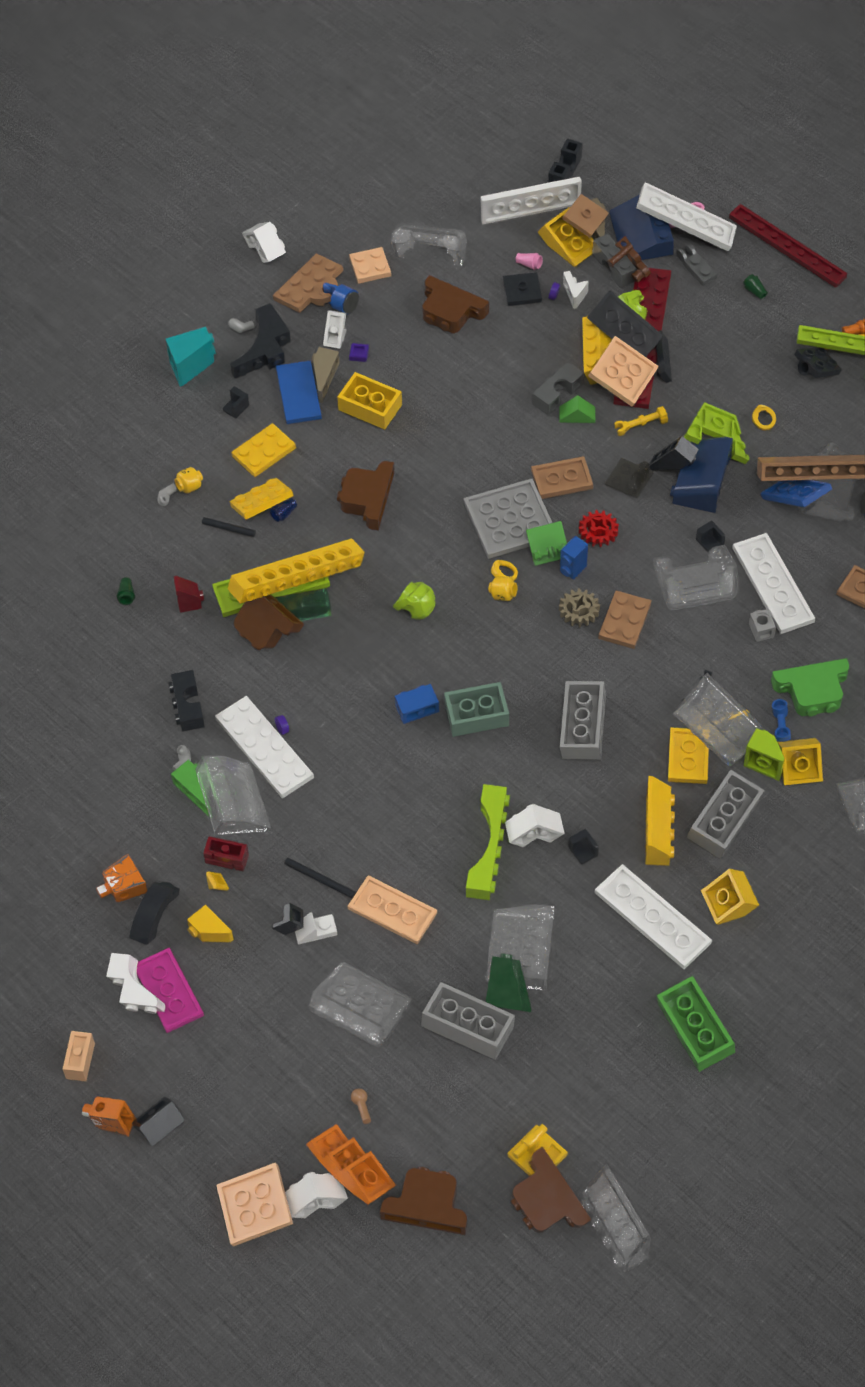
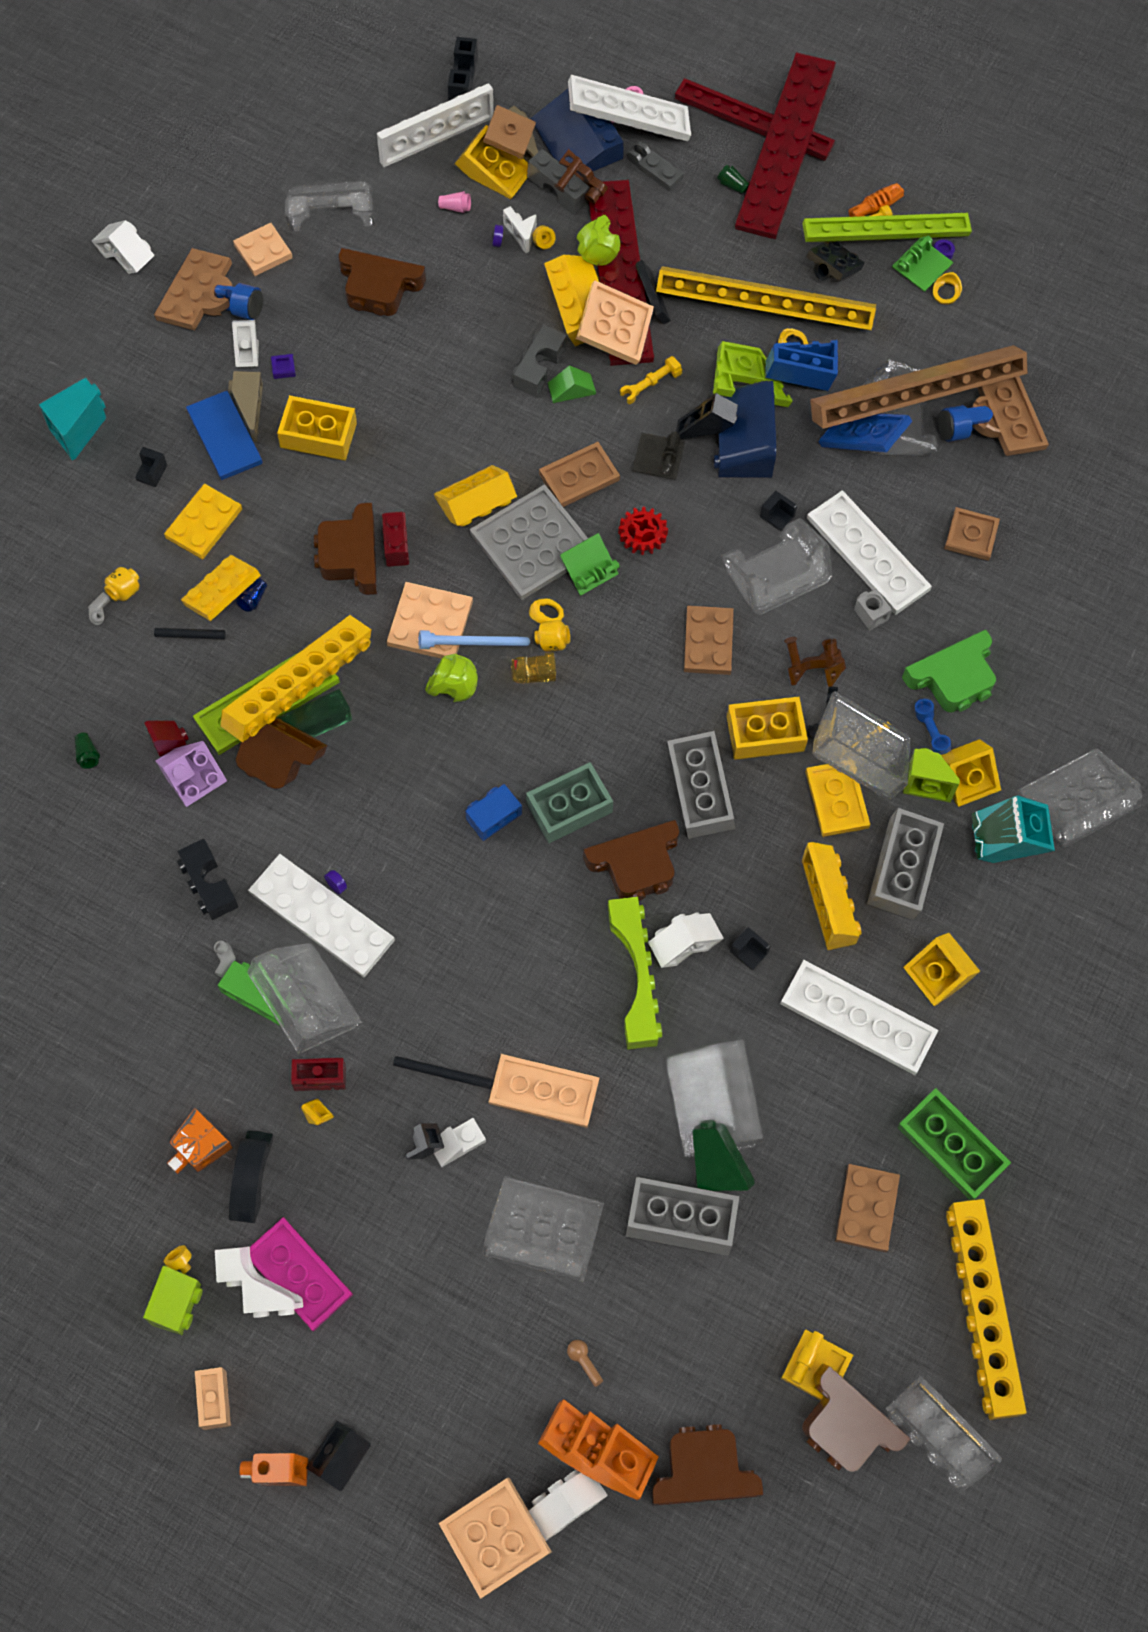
camera: 20 degrees left, 10 degrees up
(70, 981) = (173, 1301): none -> lime slope
(84, 957) = (179, 1259): none -> yellow tile
(199, 623) = (191, 771): none -> lavender slope
(208, 926) = (324, 1176): yellow slope -> none
(239, 326) = (125, 365): light grey arm -> none
(267, 346) = (167, 386): black arch -> none
(404, 493) = (395, 539): none -> dark red brick
(406, 569) = (429, 639): none -> light blue piece
(412, 557) = (428, 610): none -> light nougat plate
(476, 475) = (476, 495): none -> yellow slope
(481, 609) = (534, 669): none -> clear yellow leg
(516, 763) = (637, 861): none -> reddish brown brick
(522, 289) = (457, 241): black plate -> none
(573, 557) = (627, 576): blue brick -> none
(579, 607) = (639, 639): dark tan gear -> none
(590, 299) = (543, 237): none -> yellow tile
(614, 1054) = (867, 1208): none -> medium nougat plate
(620, 320) = (597, 260): black tile -> none
(647, 691) = (766, 728): none -> yellow brick
(678, 1219) = (1013, 1402): none -> yellow brick
(716, 654) = (829, 659): none -> reddish brown piece
(752, 379) = (766, 298): none -> yellow brick
(764, 432) = (804, 365): none -> blue wedge
(805, 269) = (785, 146): none -> dark red plate
(818, 808) = (1012, 830): none -> teal slope

